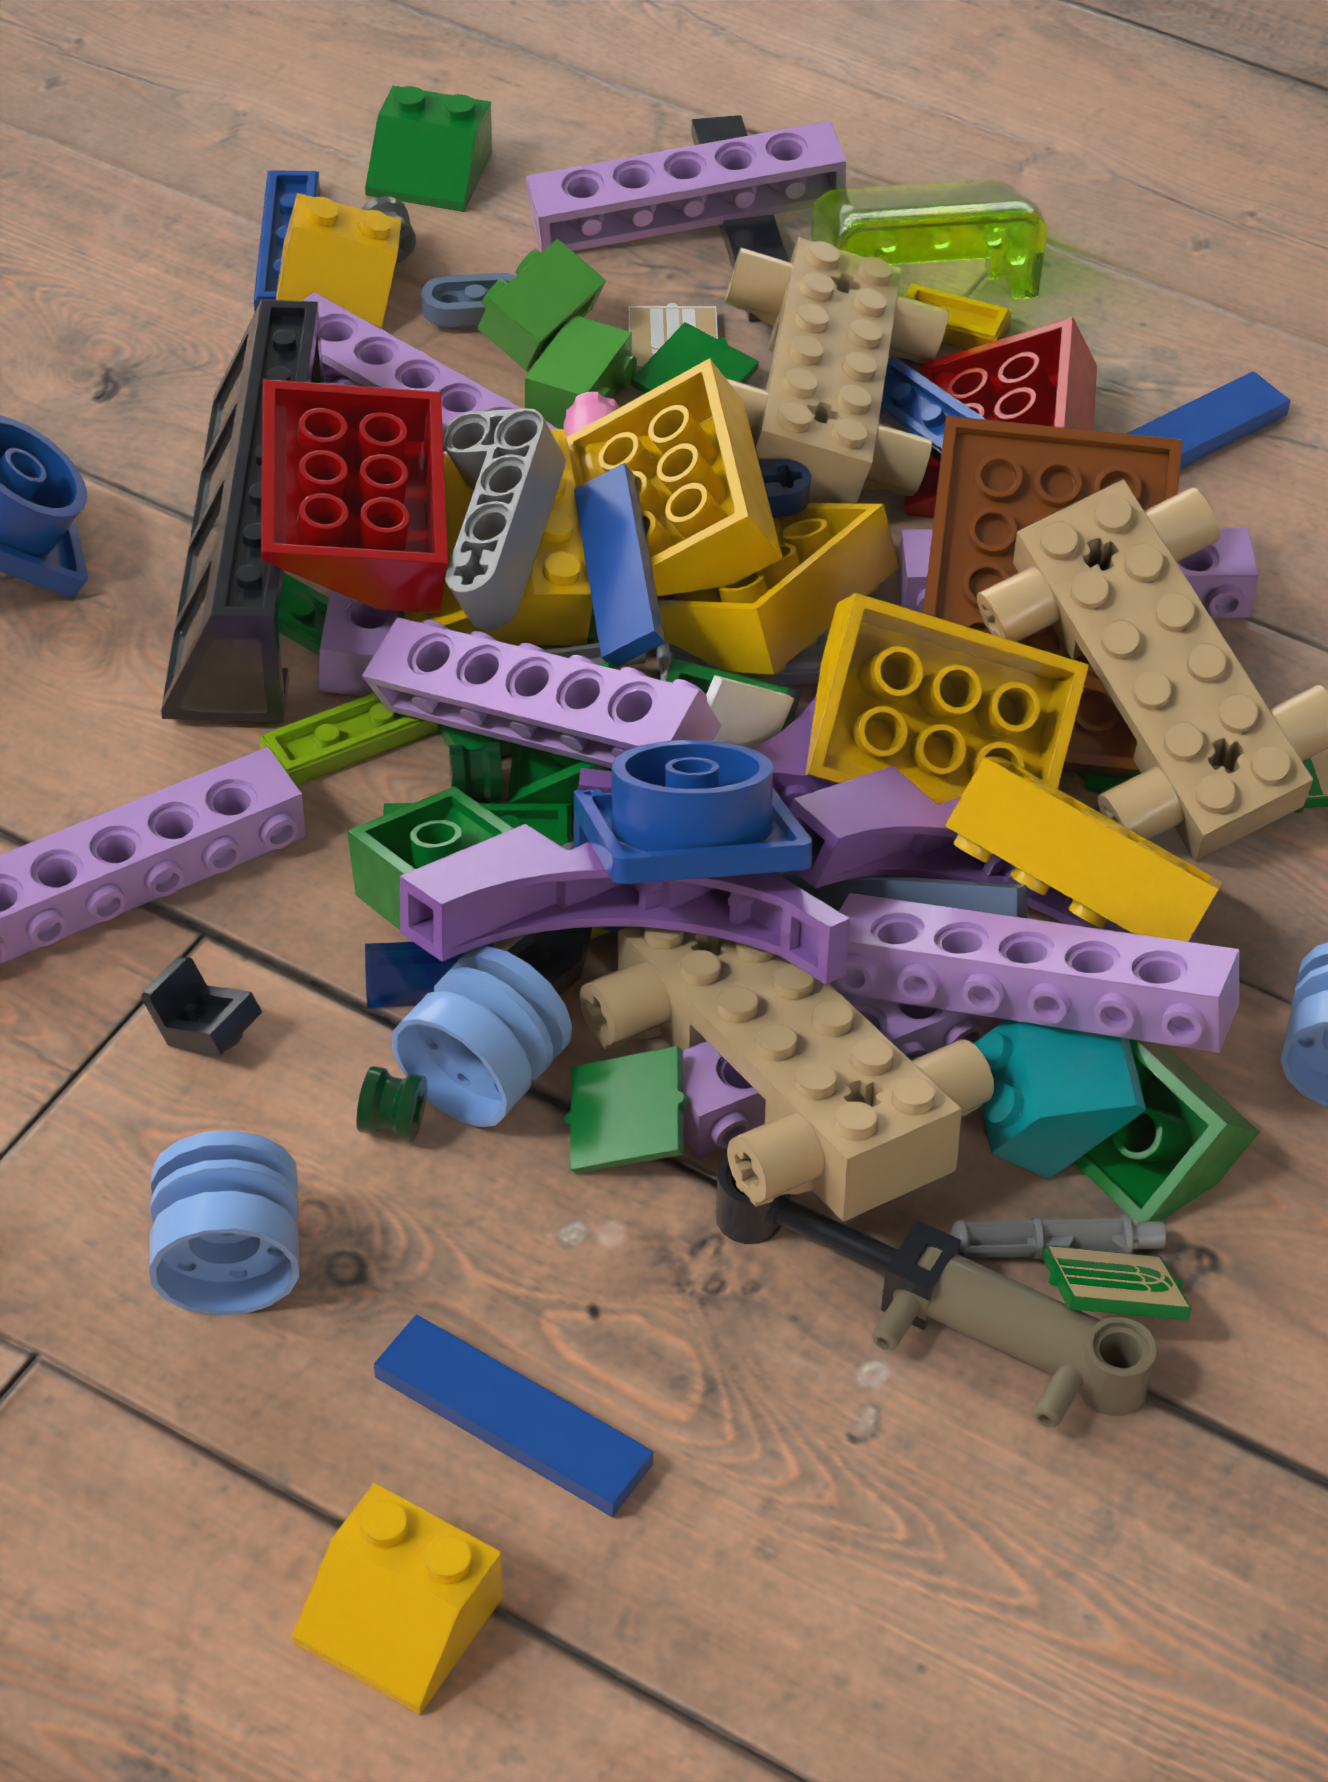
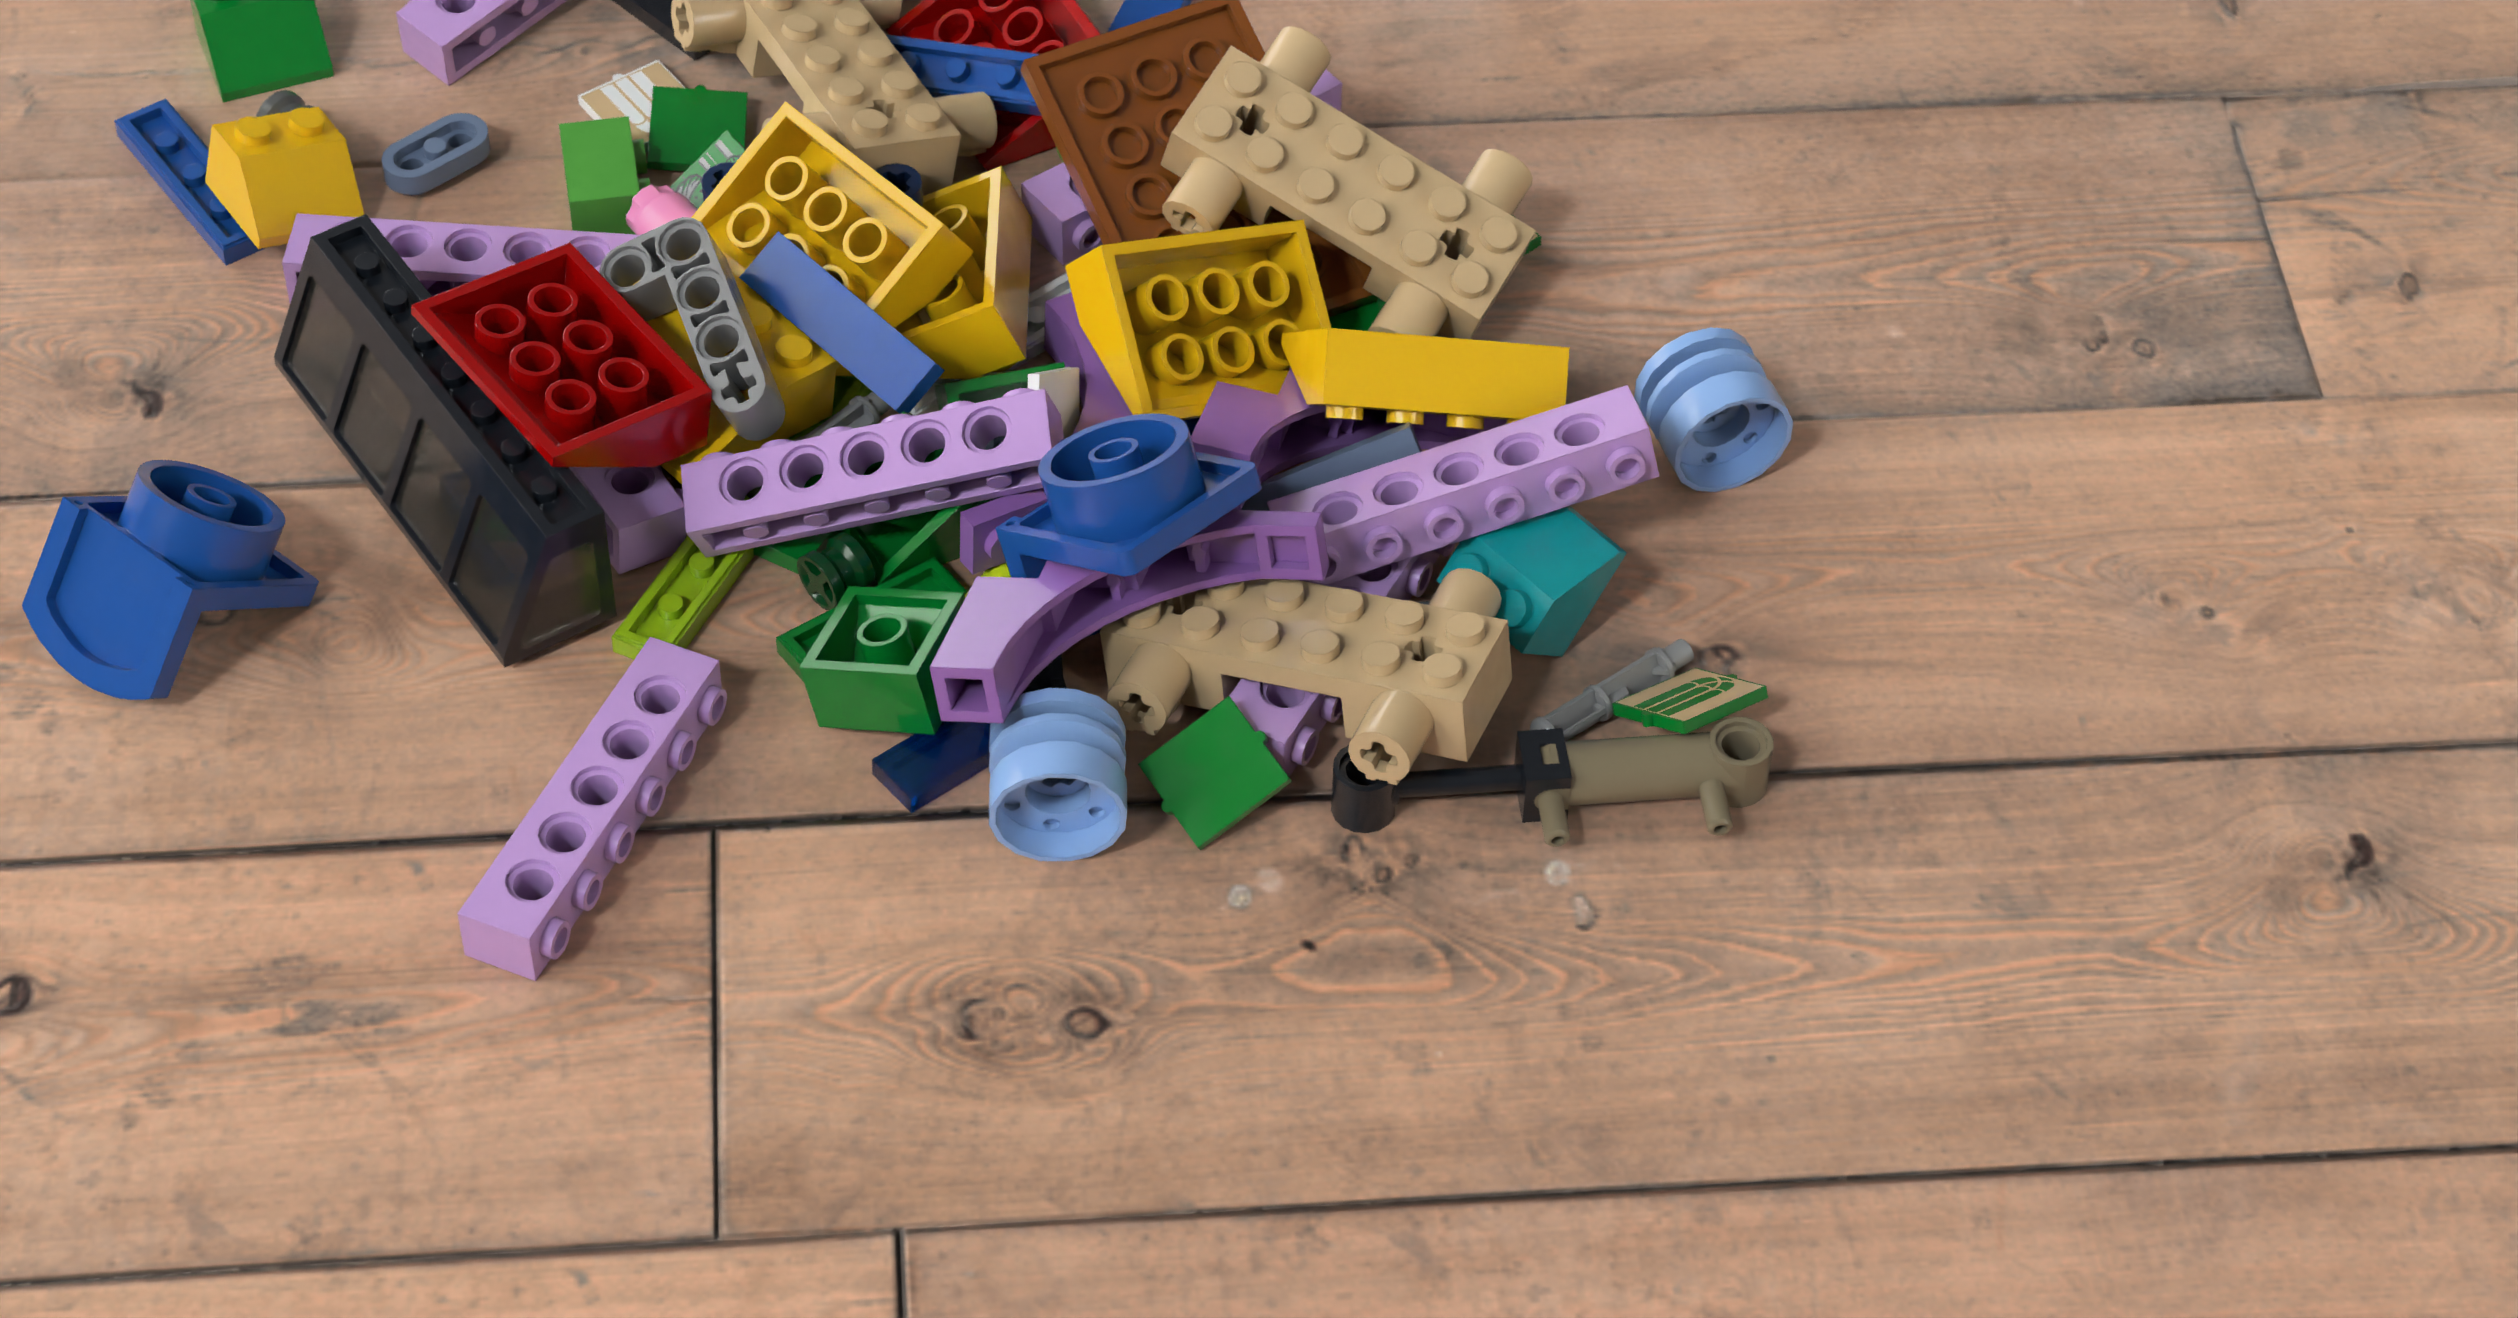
camera: 35 degrees left, 0 degrees up
(198, 1014) = (791, 888): black bracket -> none
(224, 1223) = (988, 1030): light blue wheel -> none
(391, 1103) = (1018, 872): dark green wheel -> none
(399, 1598) = (1369, 1226): yellow slope -> none
(514, 1415) = (1323, 1052): blue tile -> none
(539, 301) = (516, 127): bright green brick -> none
(1174, 1146) = (1649, 584): green slope -> none

